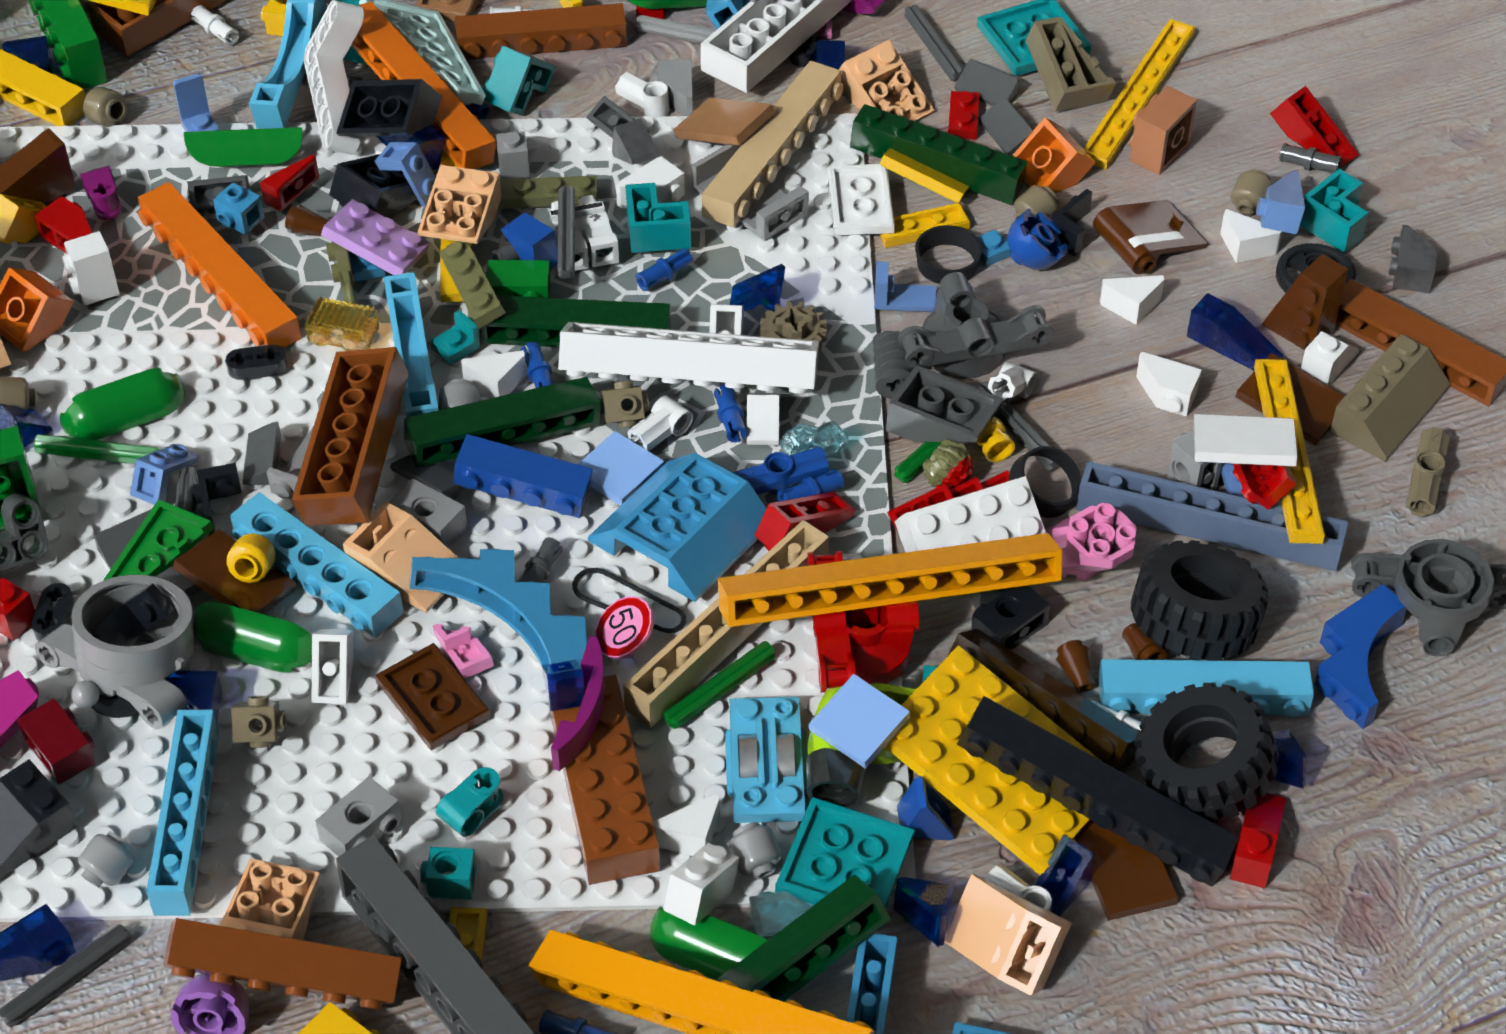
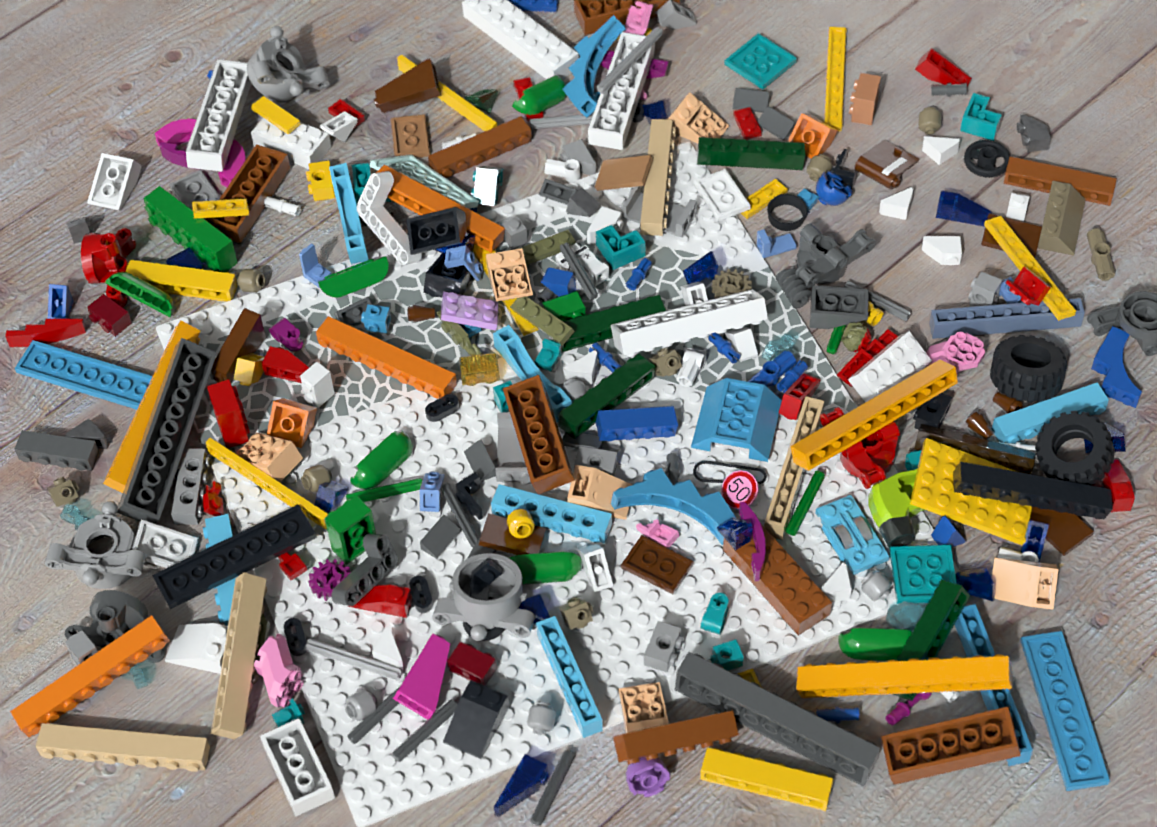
camera: 20 degrees left, 5 degrees up
(160, 540) = (459, 534): green wing -> none
(289, 183) = (394, 293): red slope -> none
(620, 467) = (684, 398): light blue tile -> none
(701, 883) = (862, 613): white brick -> none
(859, 721) = (902, 497): light blue tile -> none
(924, 175) = (749, 169): yellow tile -> none
(933, 42) = (706, 83): dark grey axle -> none
(1012, 381) = (863, 276): white piece -> none
(1046, 508) = (897, 329): black tyre -> none
(1065, 67) = (792, 77): dark tan wedge -> none
(1244, 440) = (1012, 271): white tile -> none
(1282, 204) = (955, 124): medium blue slope -> none
(1309, 303) = (997, 180): reddish brown wedge -> none

